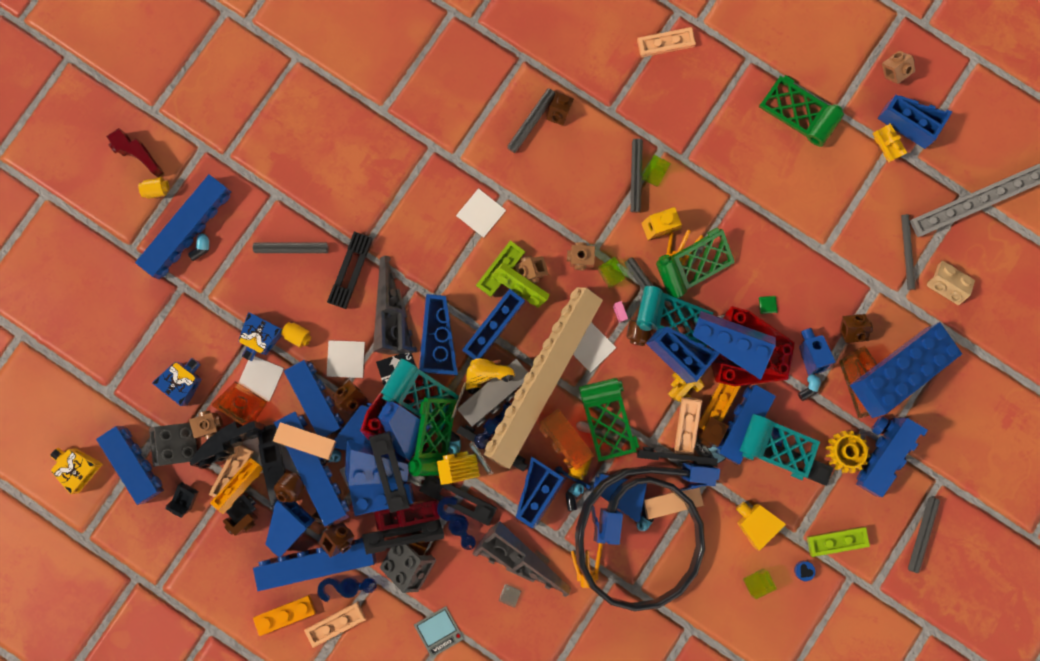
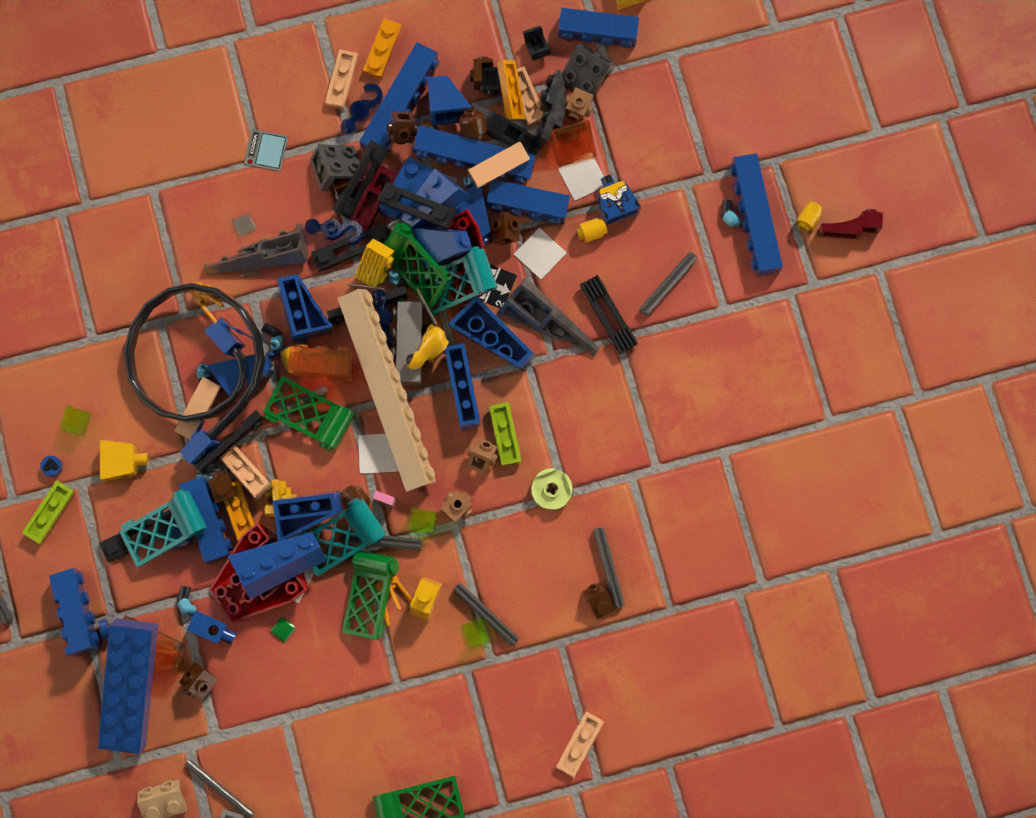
camera: 130 degrees right, 5 degrees down
(179, 381) = (631, 113): torso -> none
(481, 213) = (568, 457): white sticker -> none
(513, 214) = (558, 479): none -> yellowish green plate
(520, 285) = (476, 435): lime plate -> none
(857, 449) = (119, 579): yellow gear -> none

